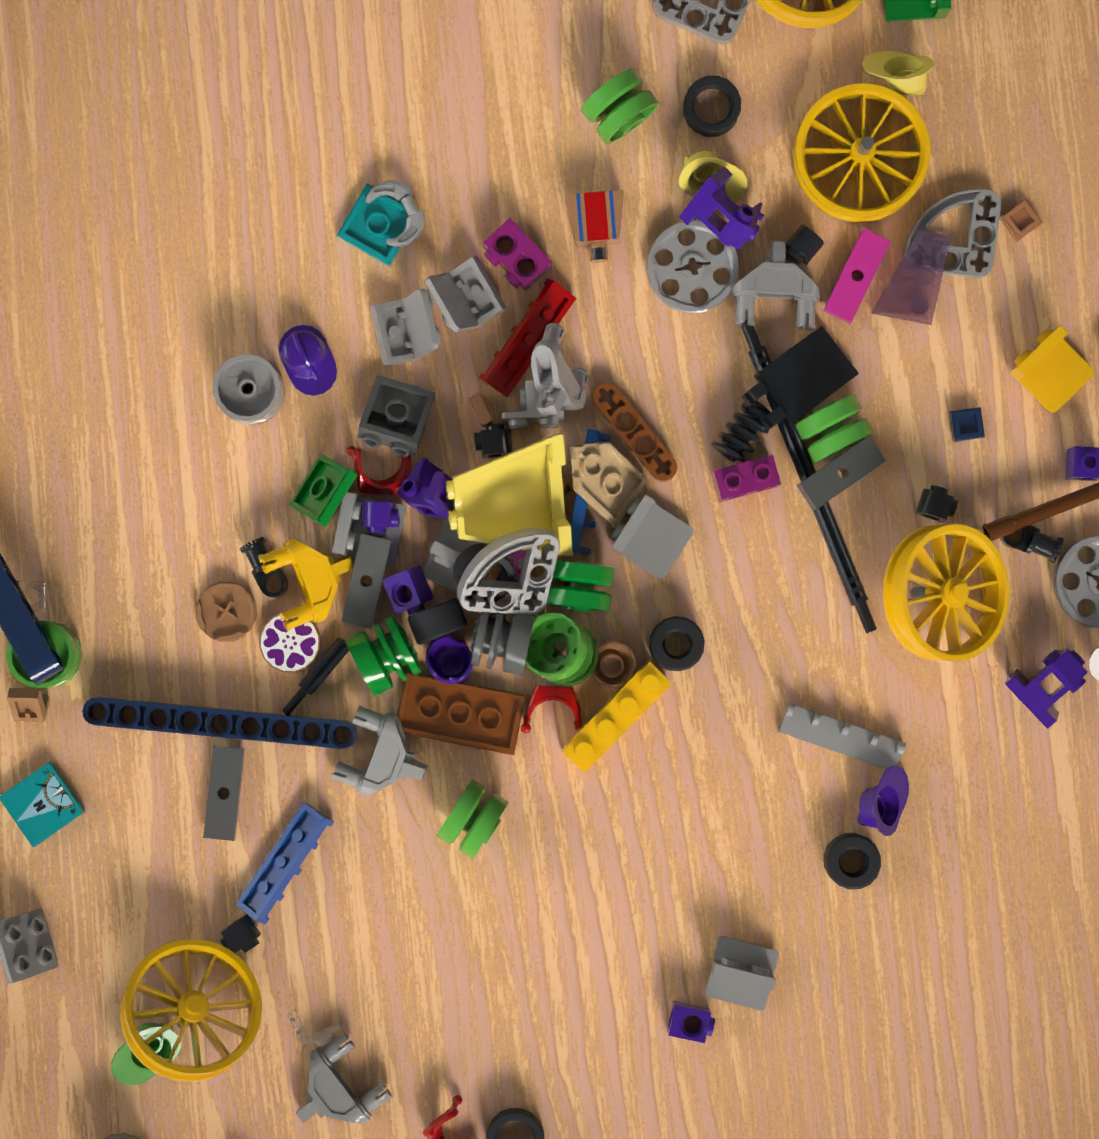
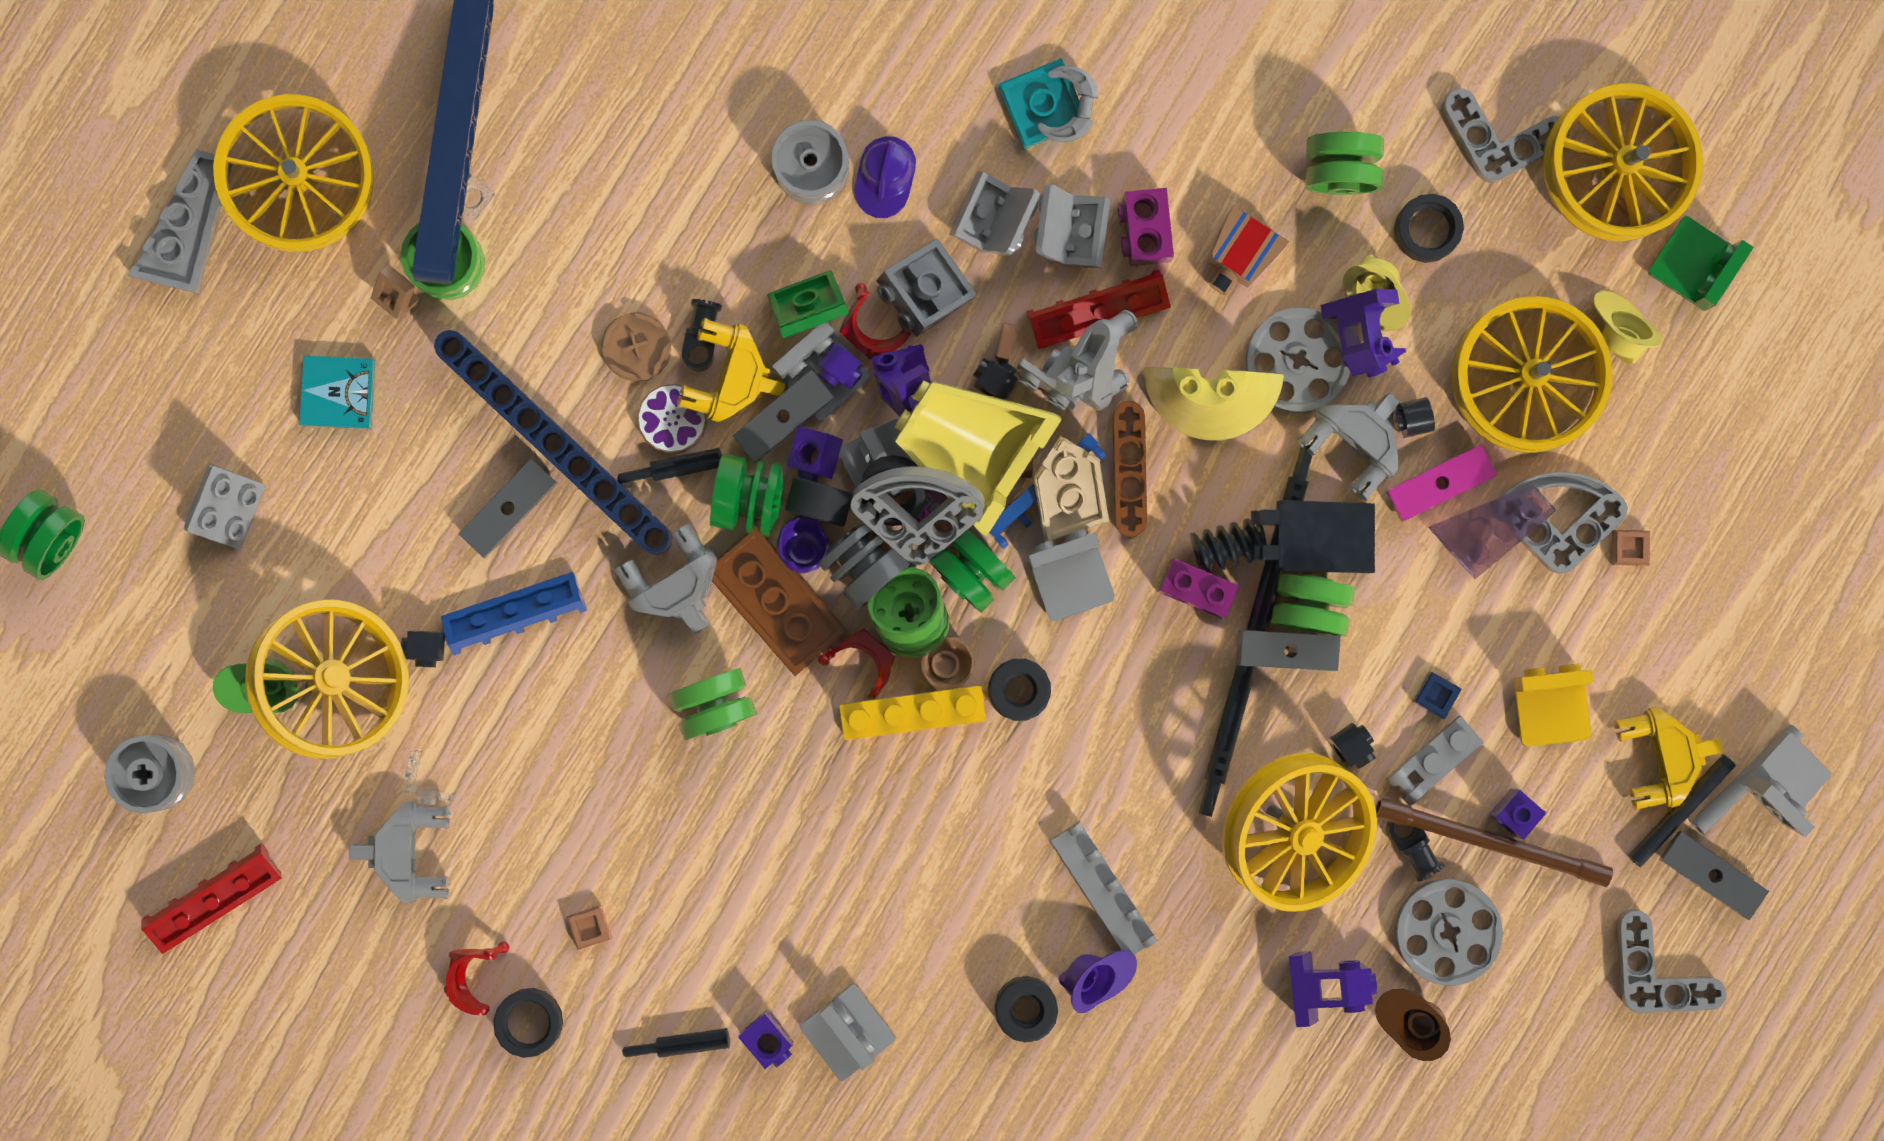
camera: 35 degrees right, 0 degrees up
(506, 1040) = (589, 927): none -> nougat tile
(633, 1070) = (682, 1044): none -> black axle
(659, 347) = (1214, 407): none -> light yellow cone
(1000, 470) = (1435, 759): none -> light grey plate

